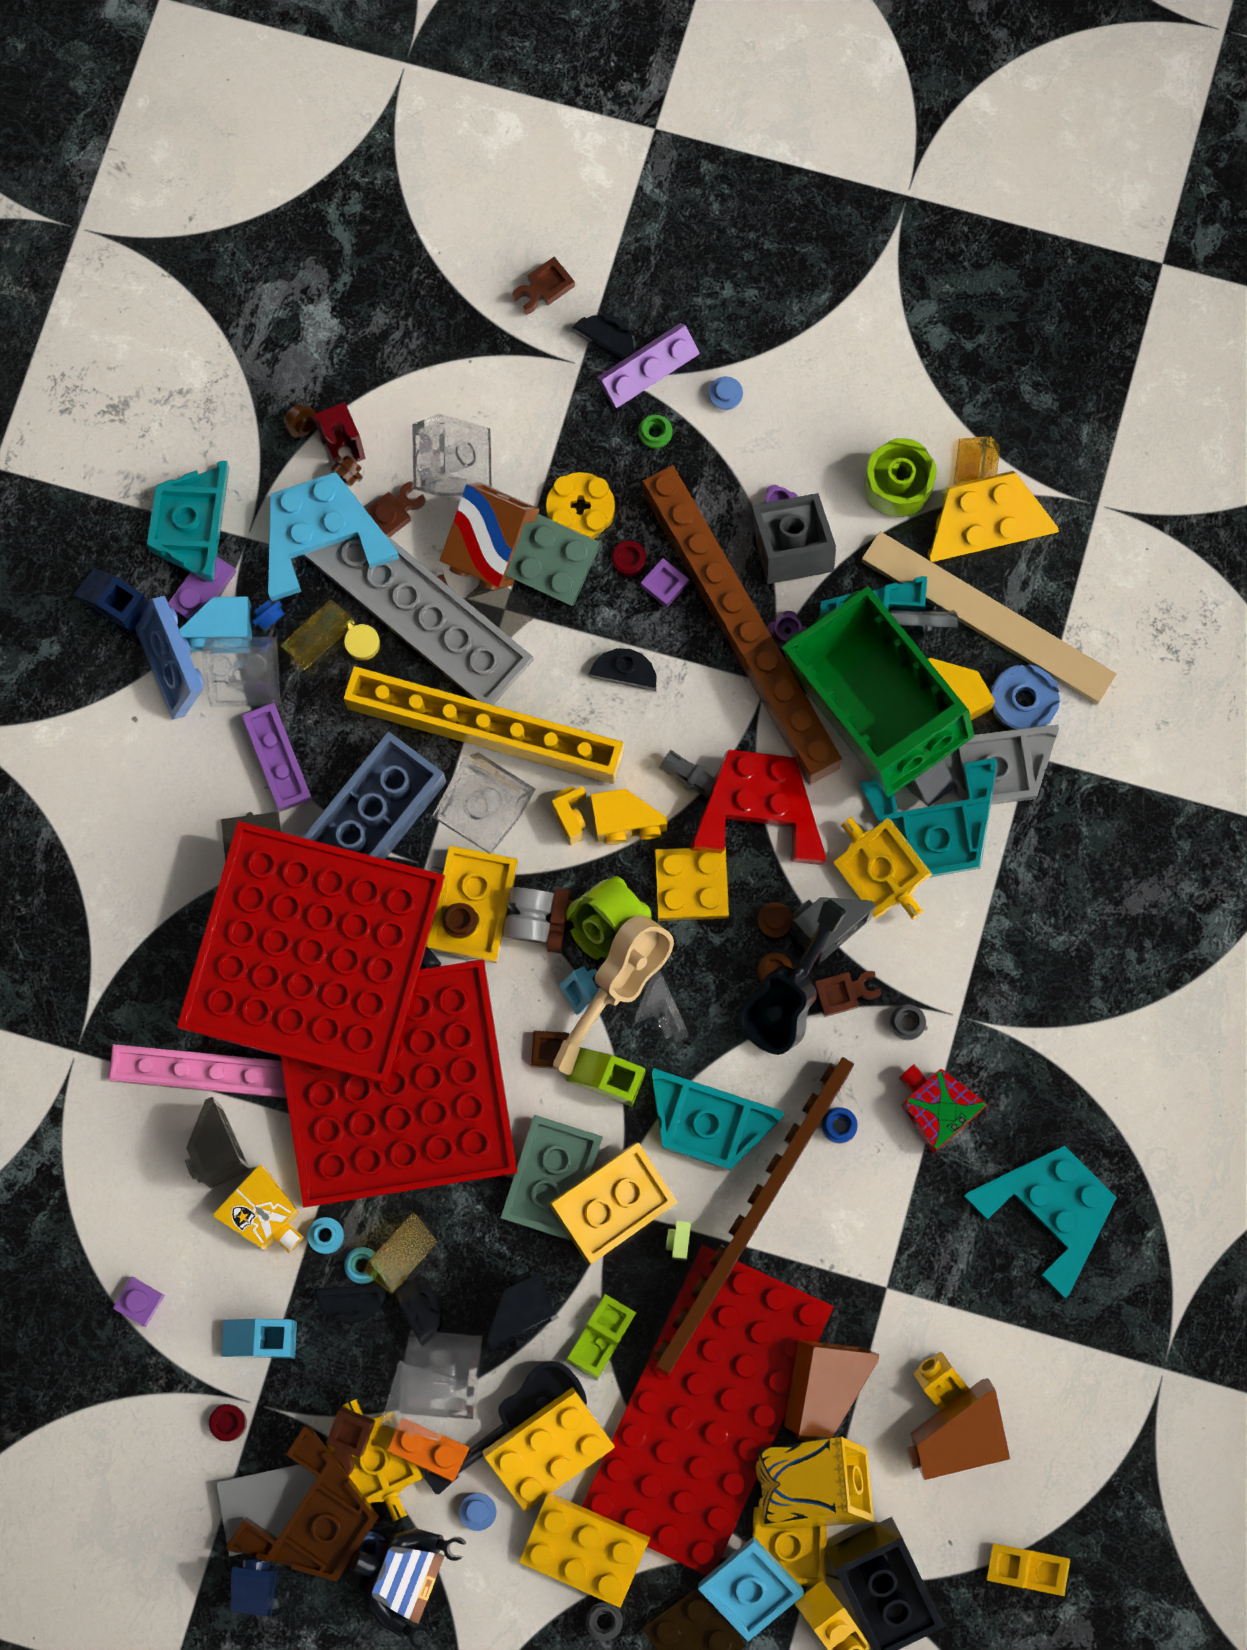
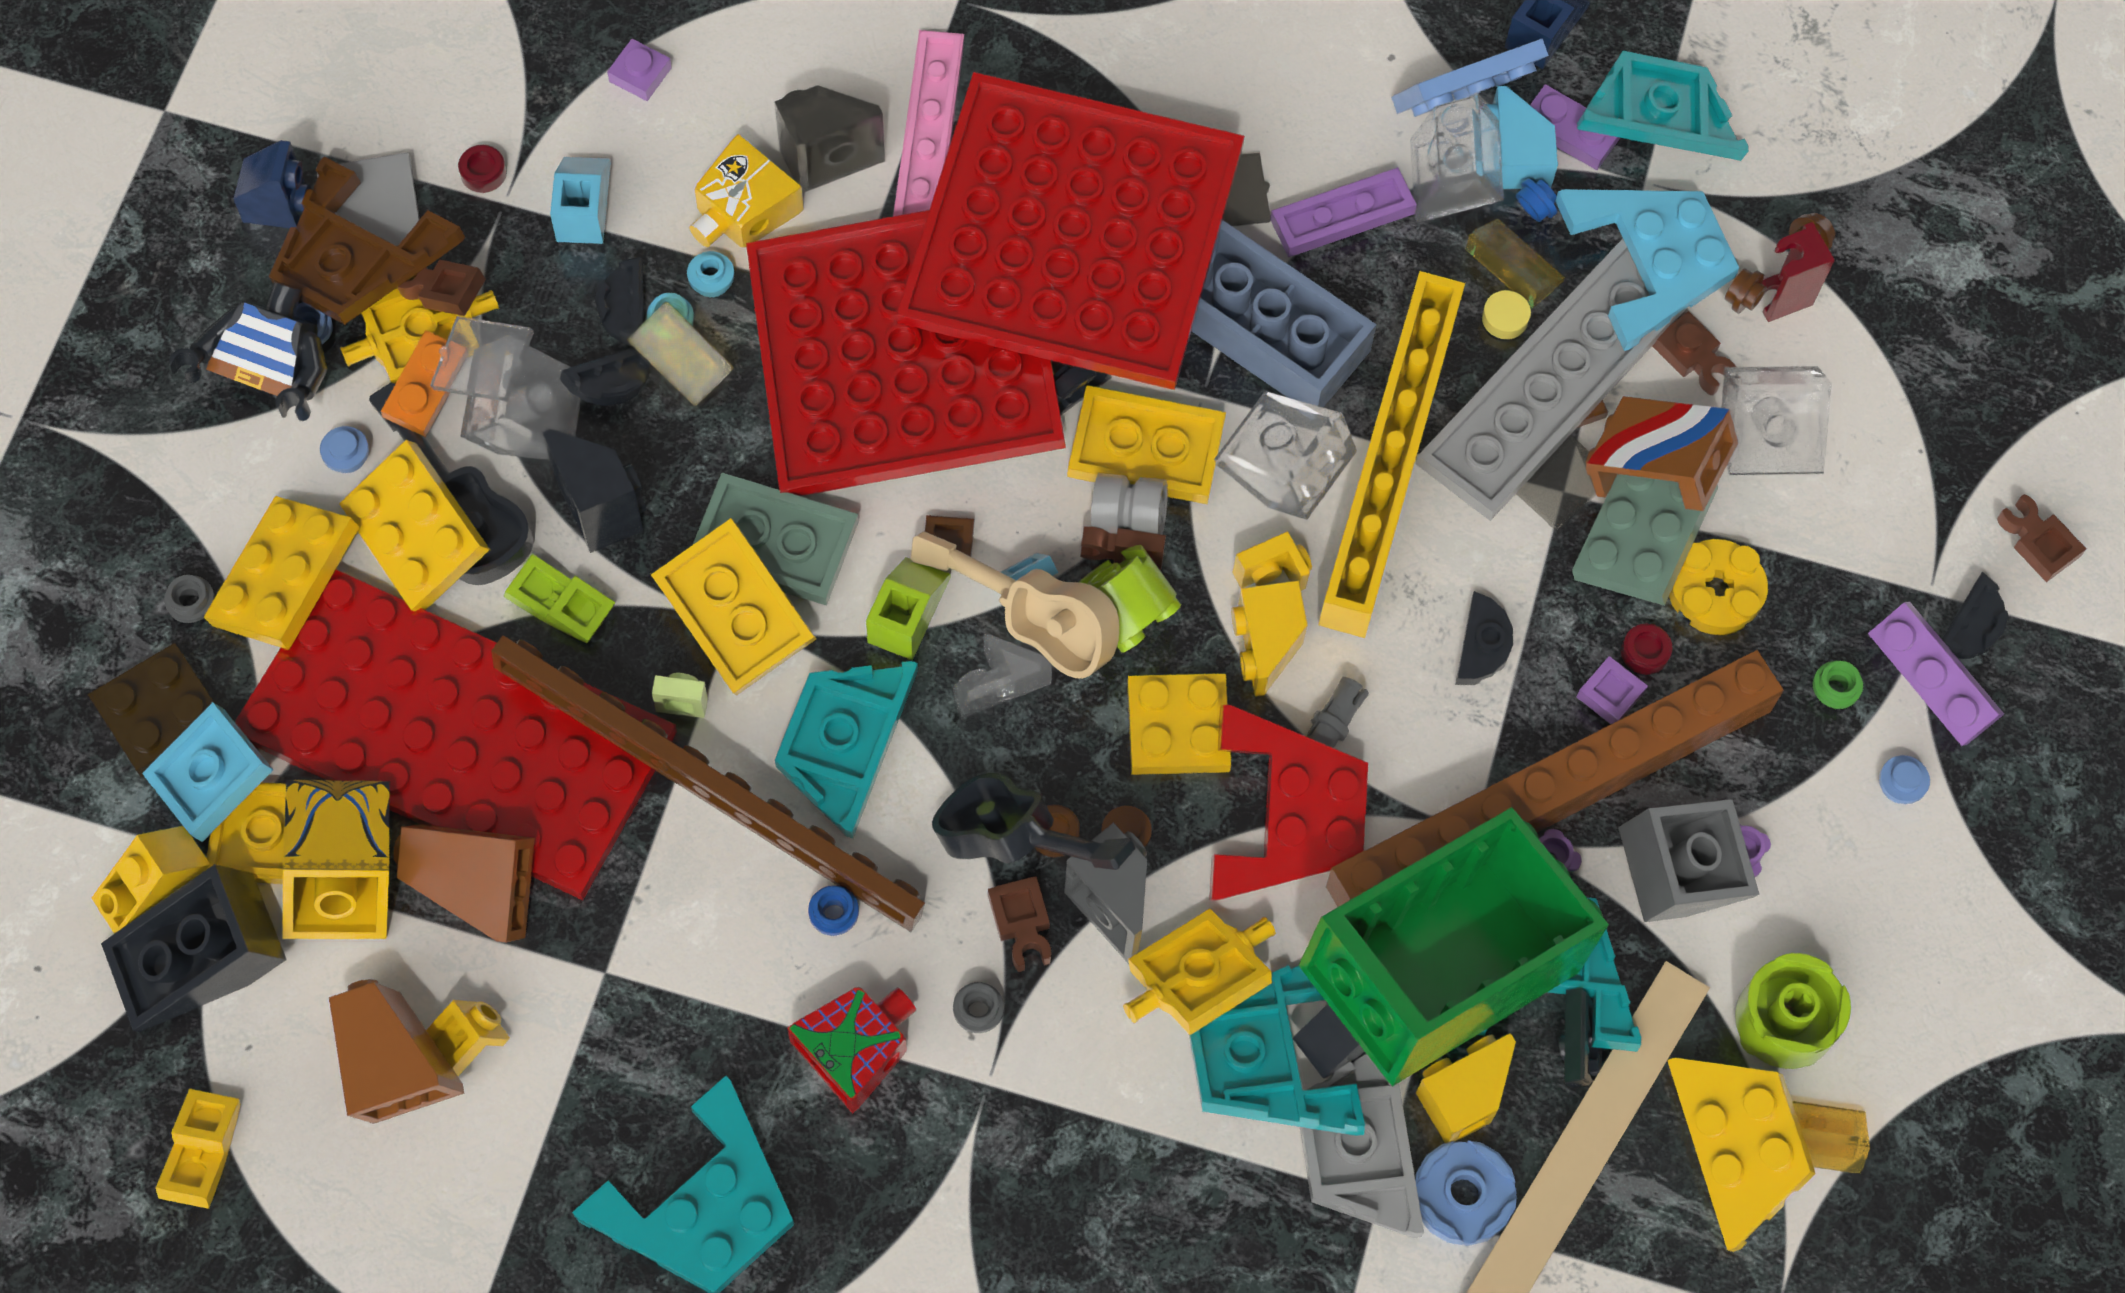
camera: 85 degrees right, 10 degrees down
(460, 920) = (1120, 419): reddish brown plate -> none

